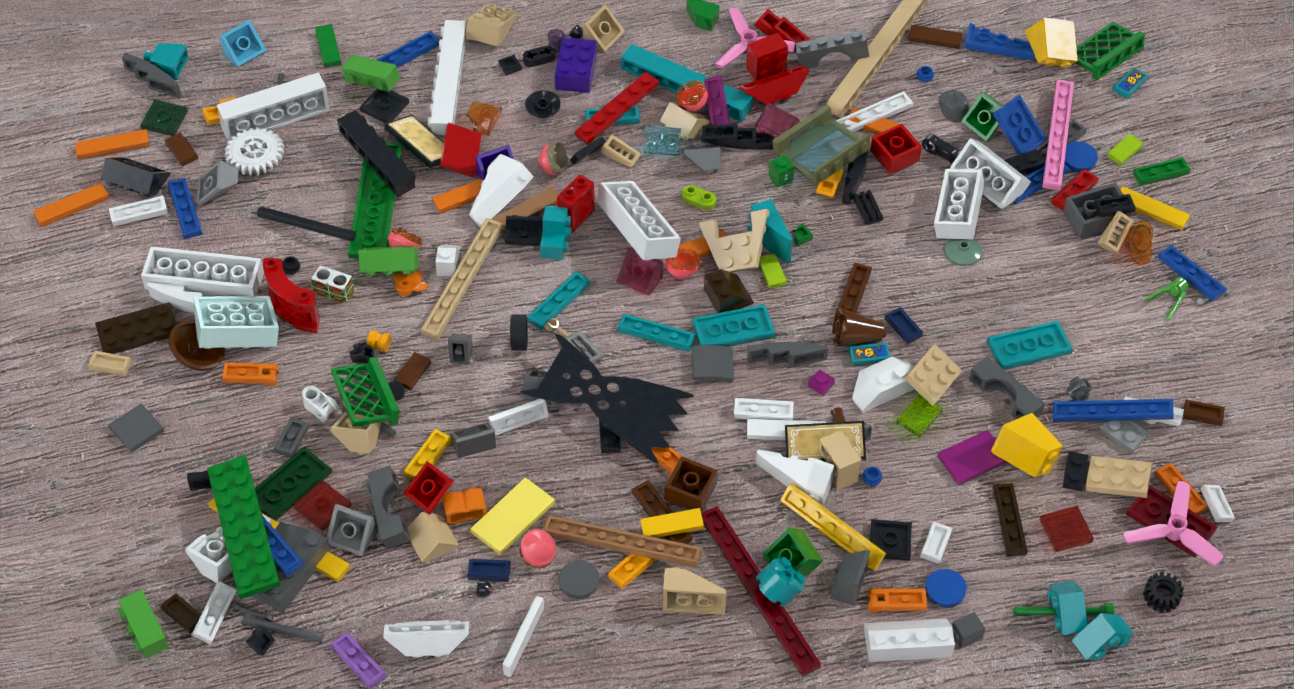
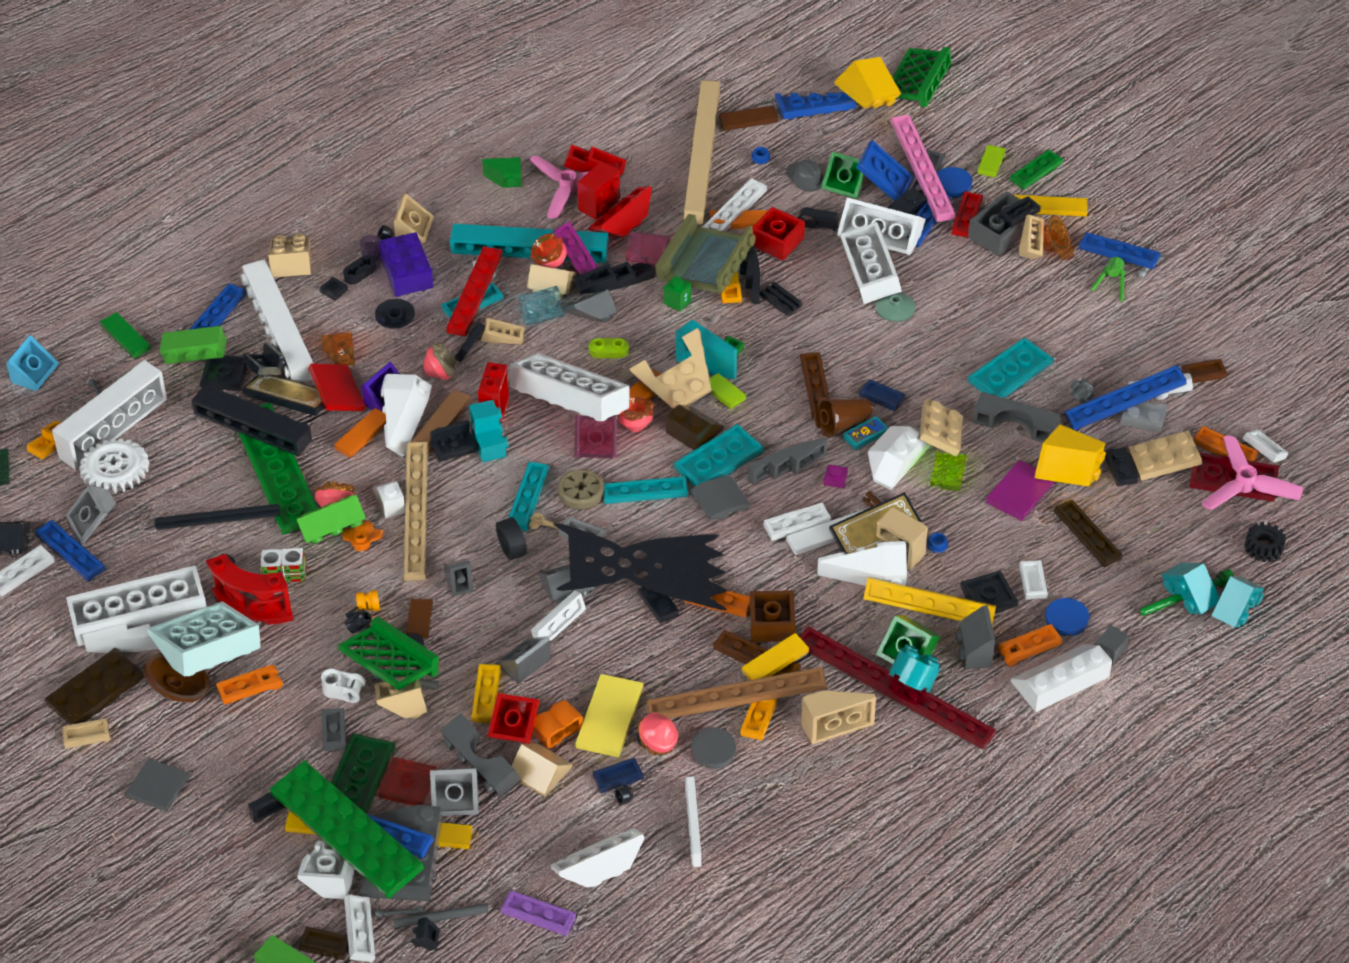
camera: 25 degrees left, 5 degrees down
(181, 149) = (28, 493): reddish brown tile -> none
(416, 109) = (267, 363): none -> black bracket
(597, 304) = (580, 499): none -> dark tan wheel
(852, 44) = (641, 170): dark grey arch -> none
(1066, 528) = (1144, 521): clear red tile -> none
(1130, 82) = (959, 98): tile -> none

